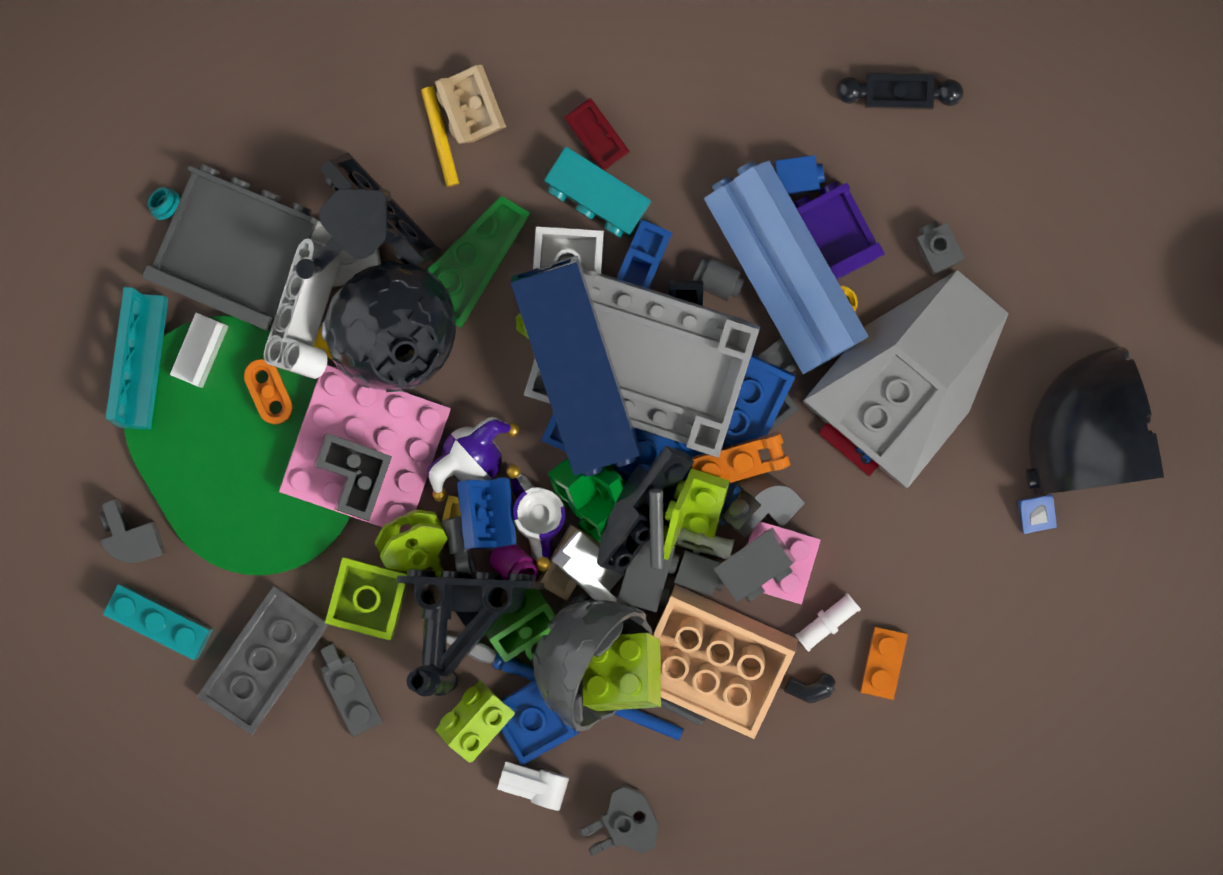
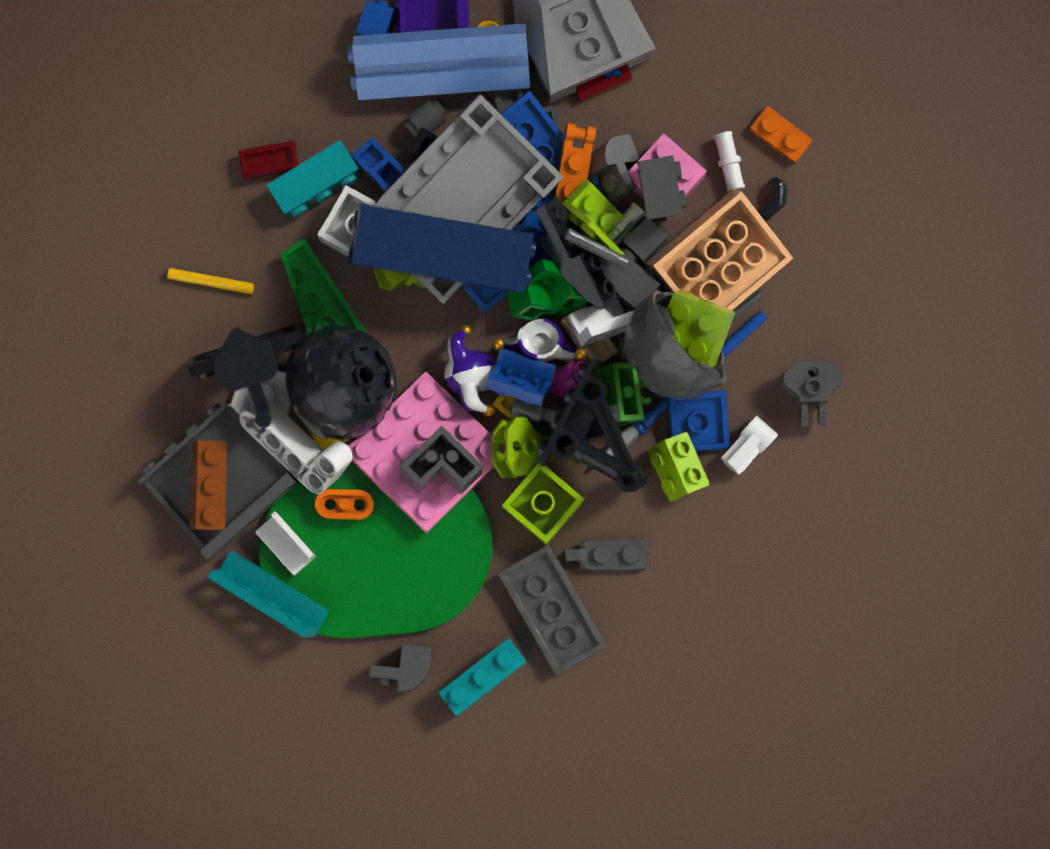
camera: 60 degrees left, 5 degrees down
(163, 203) = (157, 518): teal plate -> none
(218, 241) = (208, 485): none -> dark orange brick
(469, 105) = (198, 244): tan bracket -> none

